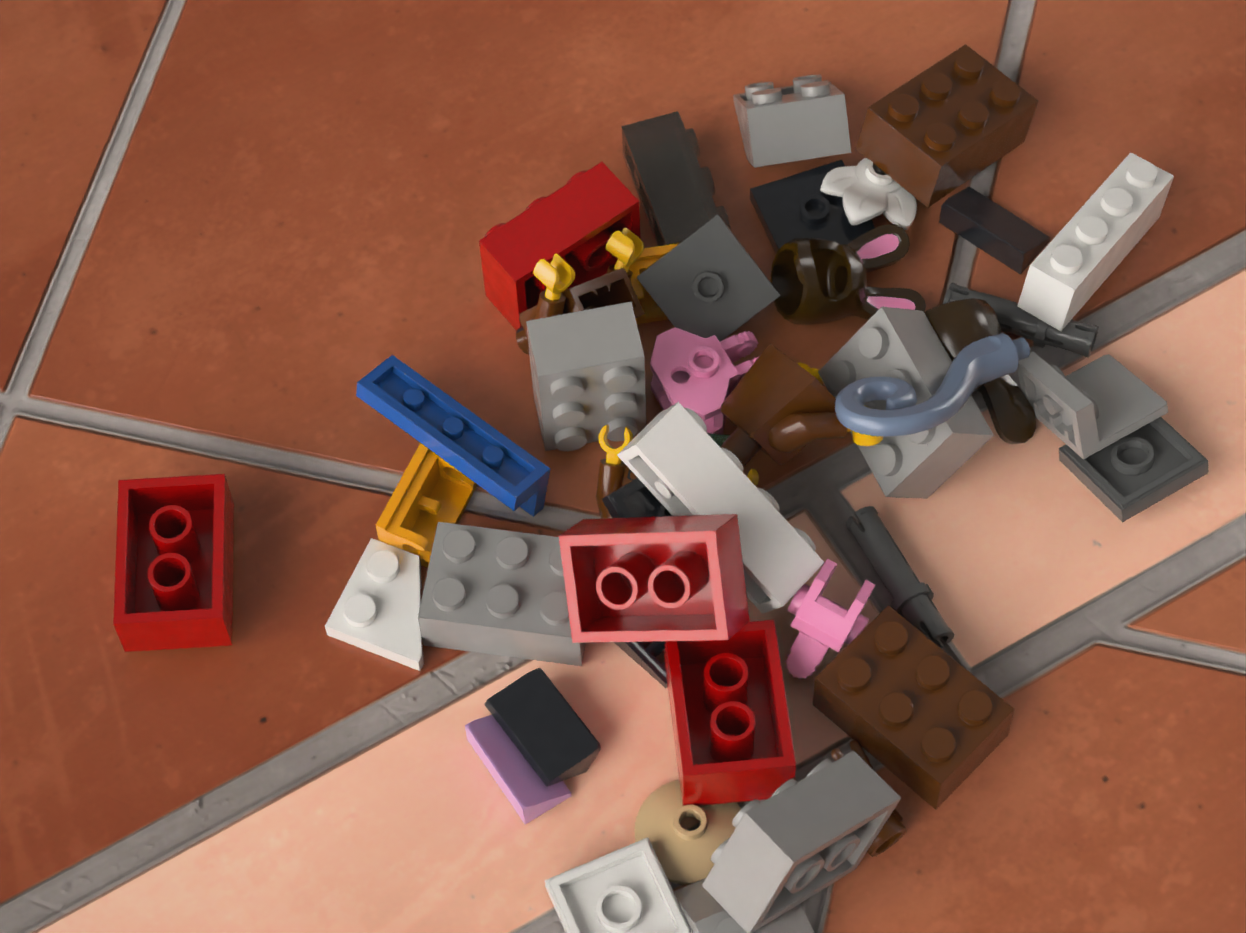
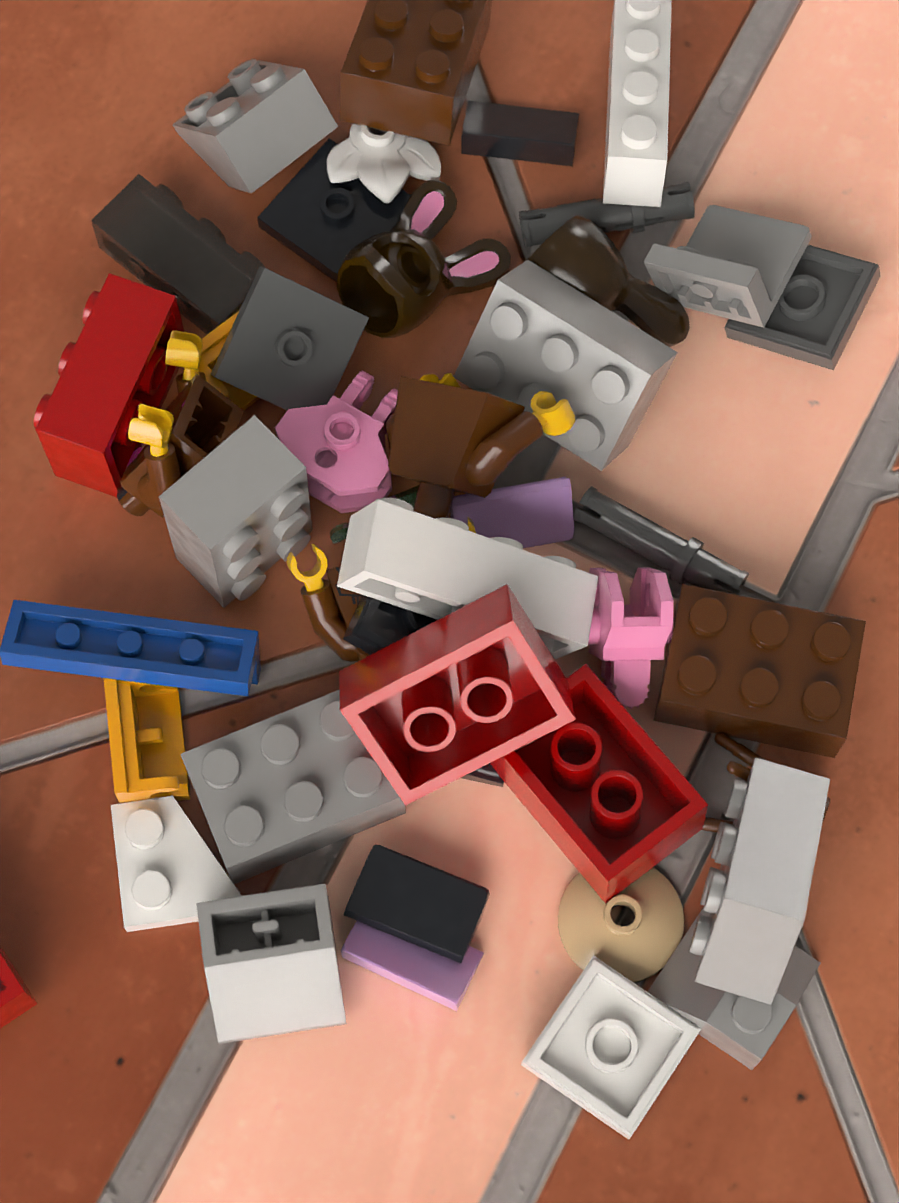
camera: 35 degrees left, 10 degrees up
(410, 705) = (271, 963): none -> slope
(807, 497) = (525, 512): none -> lavender slope
(972, 367) = (619, 294): sand blue plant -> none

